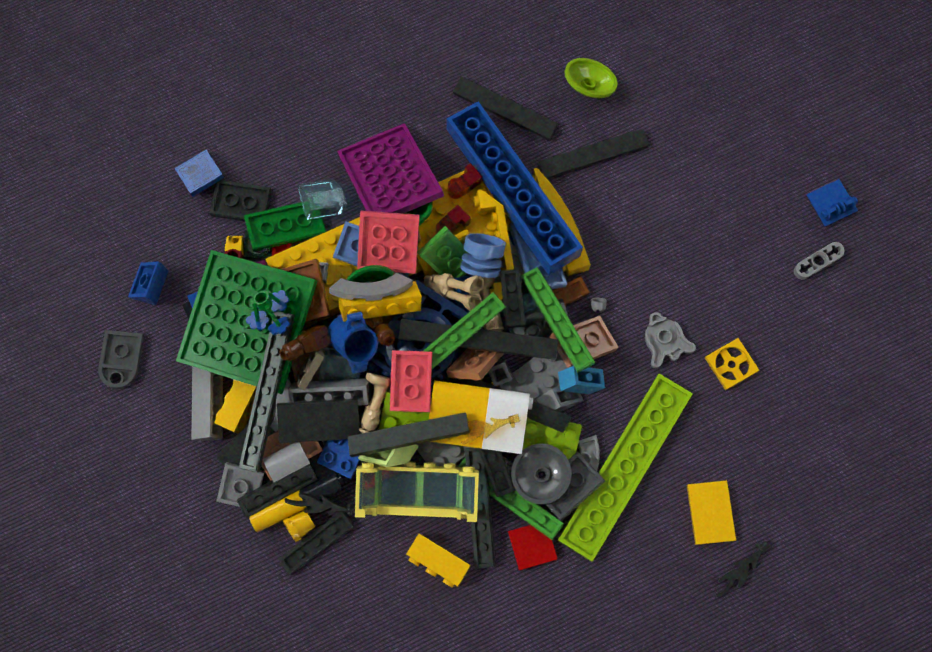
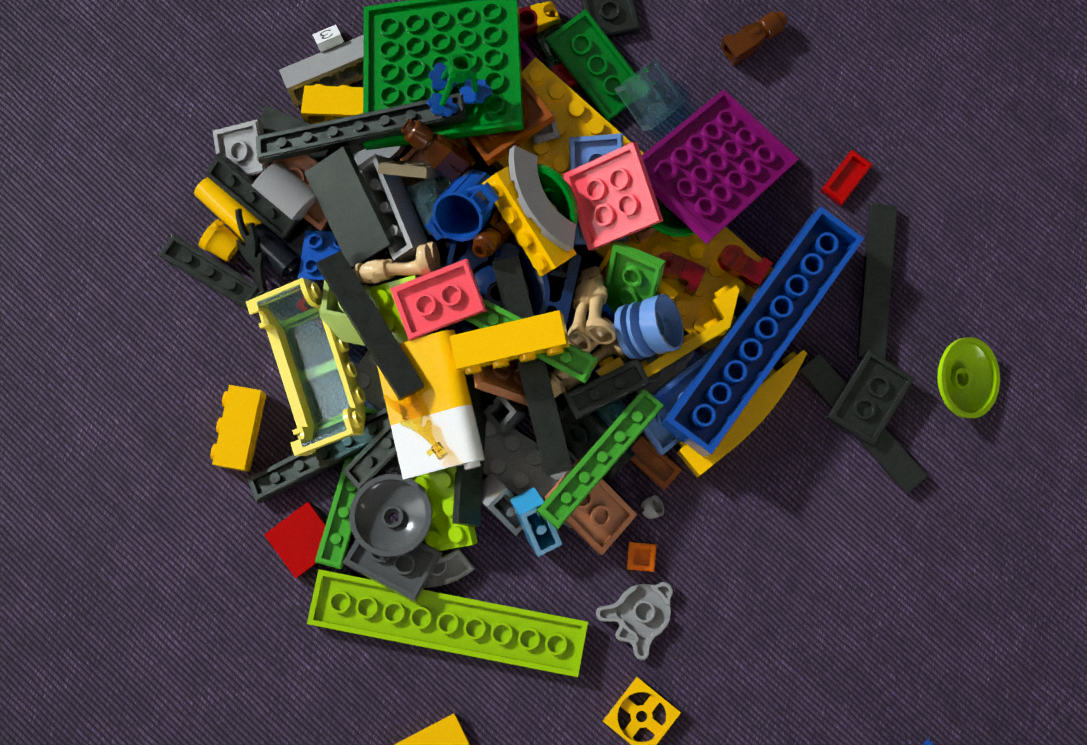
camera: 65 degrees right, 5 degrees up
(183, 397) = (328, 38): none -> white tile
(309, 119) = (752, 37): none -> reddish brown piece
(429, 100) = (846, 178): none -> red tile
(460, 341) = (510, 341): none -> yellow brick
(580, 142) = (870, 398): none -> pearl dark grey tile
(628, 324) = (641, 557): none -> orange tile

